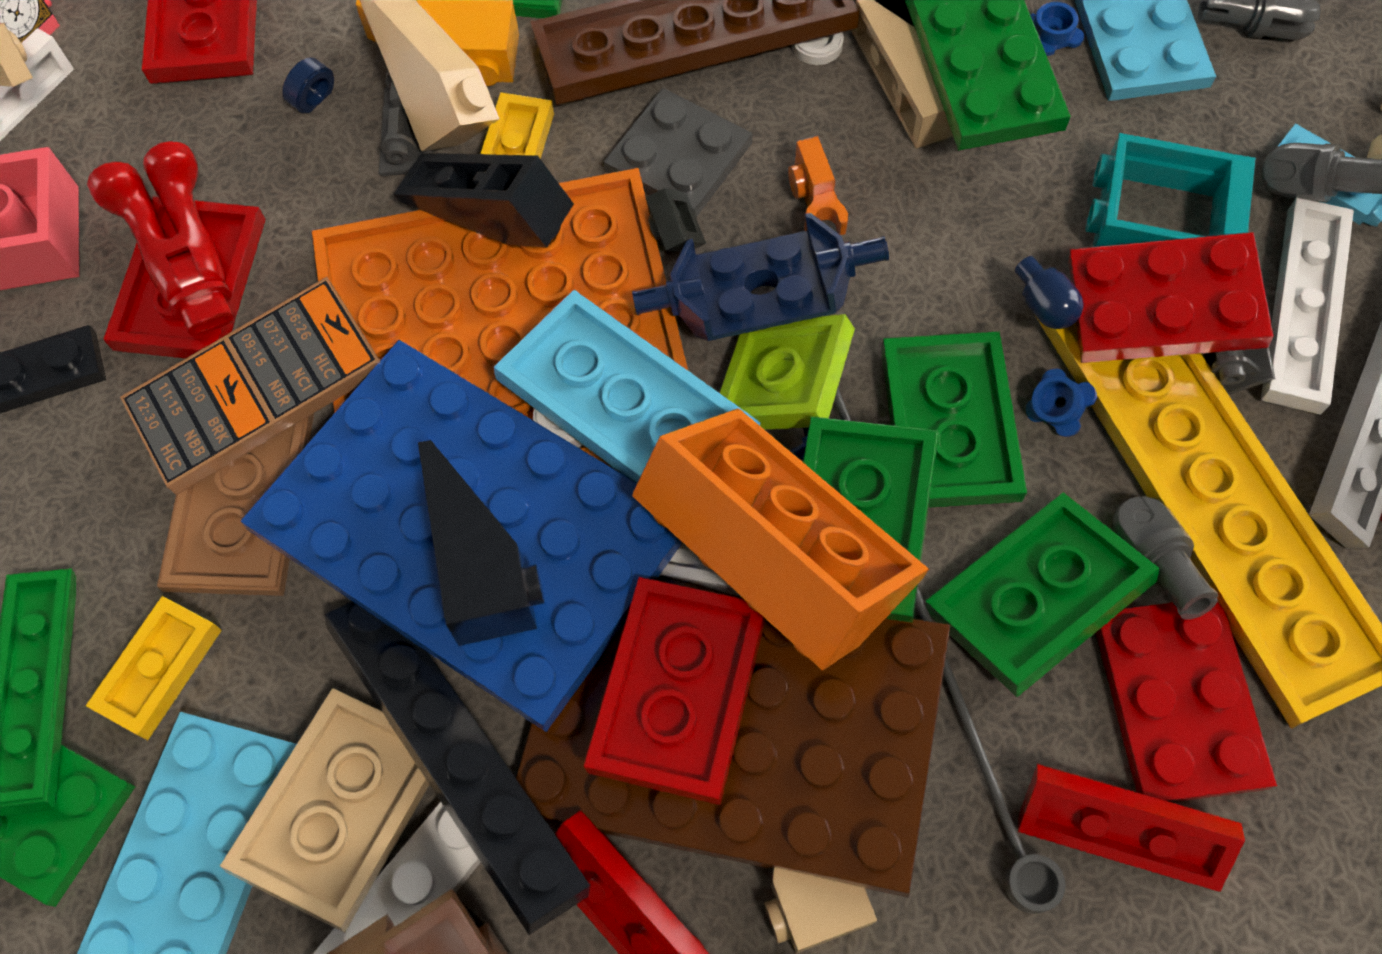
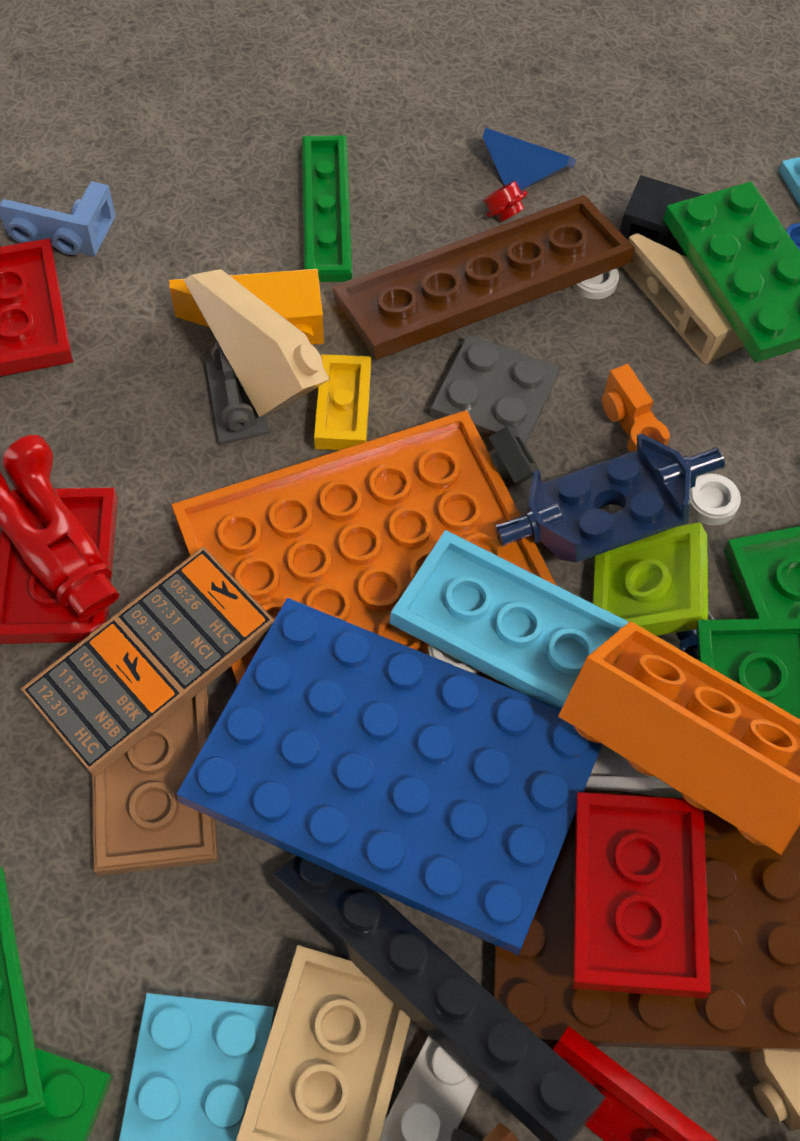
camera: 15 degrees left, 5 degrees down
(154, 668) = (110, 953): yellow plate -> none
(308, 85) = (134, 367): dark blue tile -> none
(478, 563) = (430, 794): black slope -> none
(490, 194) = (342, 451): black slope -> none
(883, 294) = (714, 499): none -> white tile

